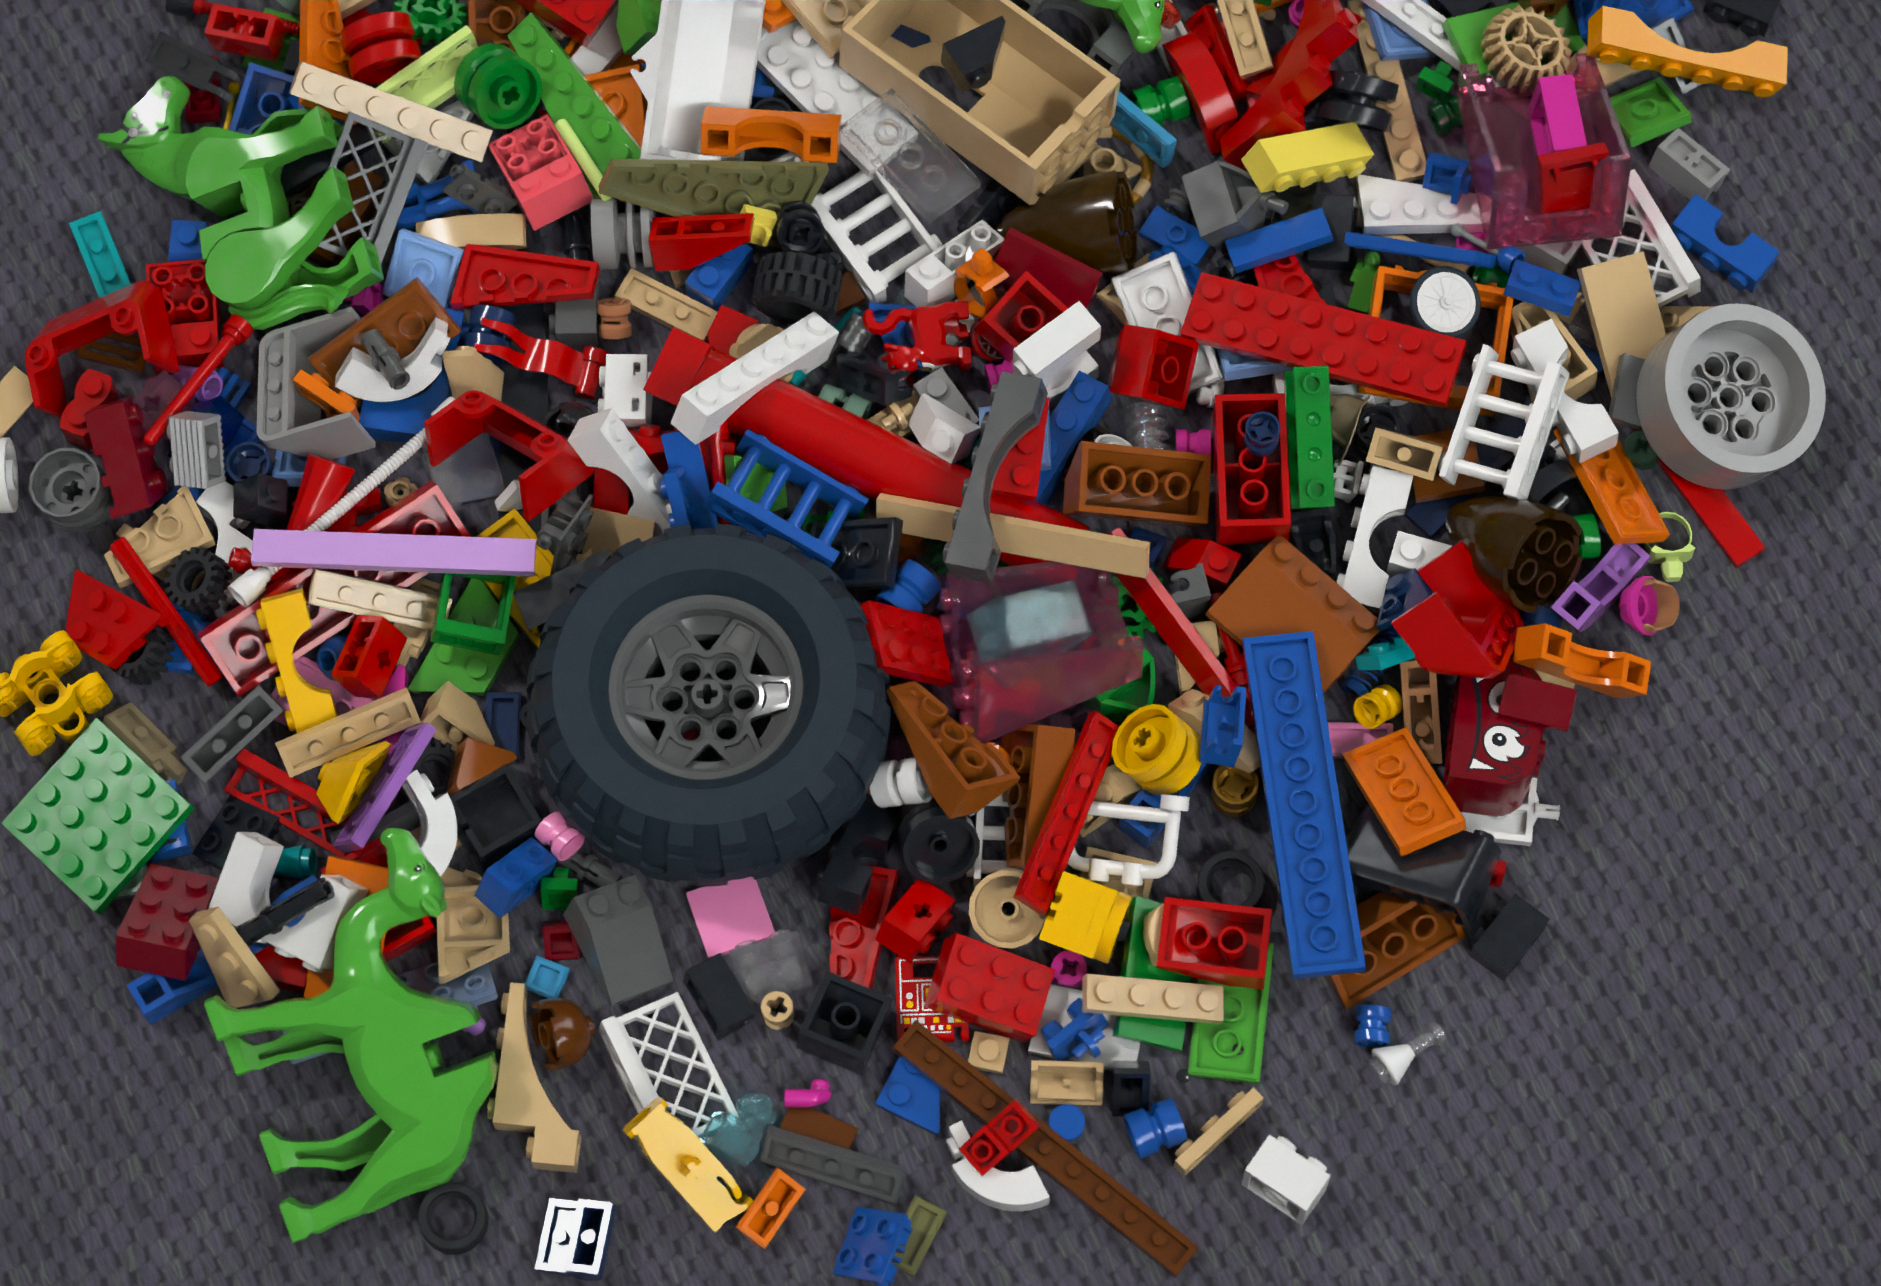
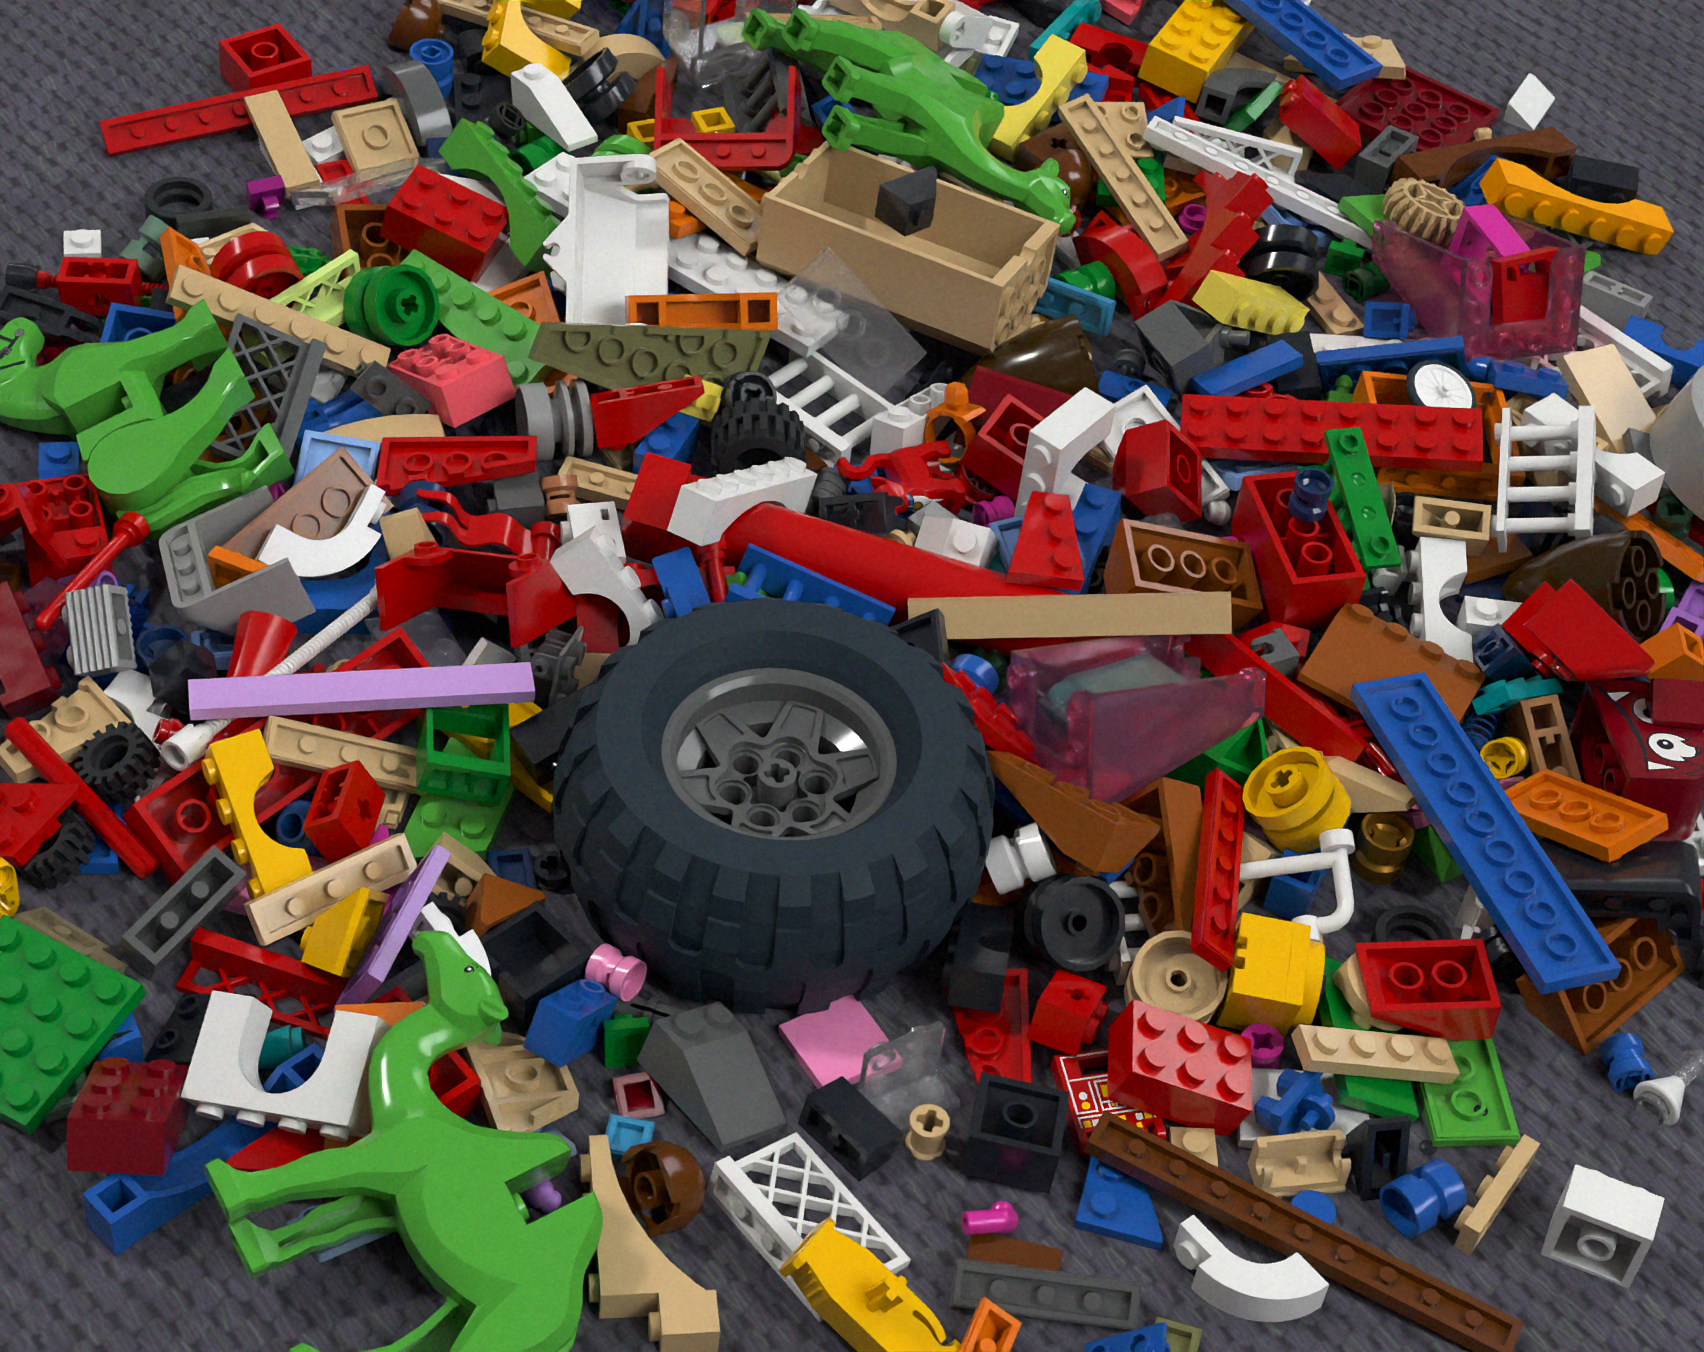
camera: 20 degrees left, 25 degrees down
(231, 961) = (217, 1128): tan wing -> none
(273, 918) = (278, 1074): black pin -> none
(385, 359) = (316, 523): dark grey pin -> none
(580, 154) = (513, 362): yellowish green bar -> none
(737, 1138) = (924, 1260): clear light blue brick -> none
(999, 1137) = (1249, 1222): red slope -> none
(1014, 412) = (1039, 602): dark grey arch -> none
(1222, 727) = (1366, 765): blue hinge -> none

